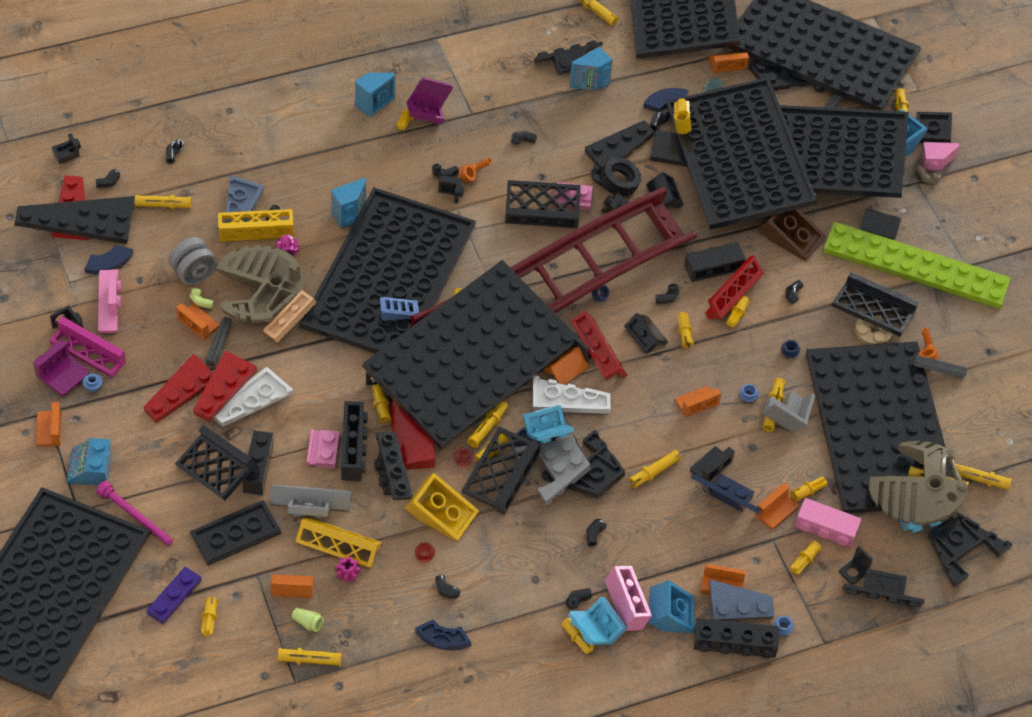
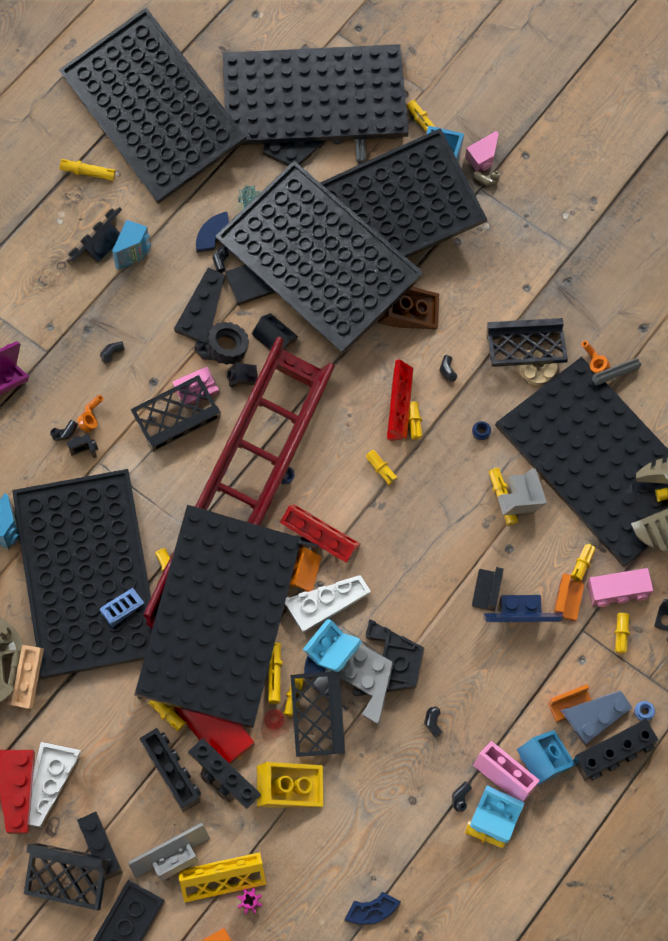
camera: 30 degrees left, 15 degrees up
(323, 448) = (145, 791): bright pink plate -> none
(424, 547) = (303, 831): clear red plate -> none
(445, 589) = (345, 864): black arm -> none
(645, 332) = (349, 491): black panel -> none
(649, 472) = (442, 631): yellow pin -> none
(670, 295) = (346, 439): black arm -> none
(682, 116) = (243, 247): yellow piece -> none
(698, 400) = (436, 532): orange panel -> none
(714, 261) = (363, 381): black brick -> none
(728, 62) = (242, 158): orange panel -> none
(748, 389) = (474, 492): medium blue plate -> none
(880, 224) = (478, 252): black panel -> none
(917, 265) = (532, 276): lime plate -> none
(938, 126) = (463, 120): black plate -> none

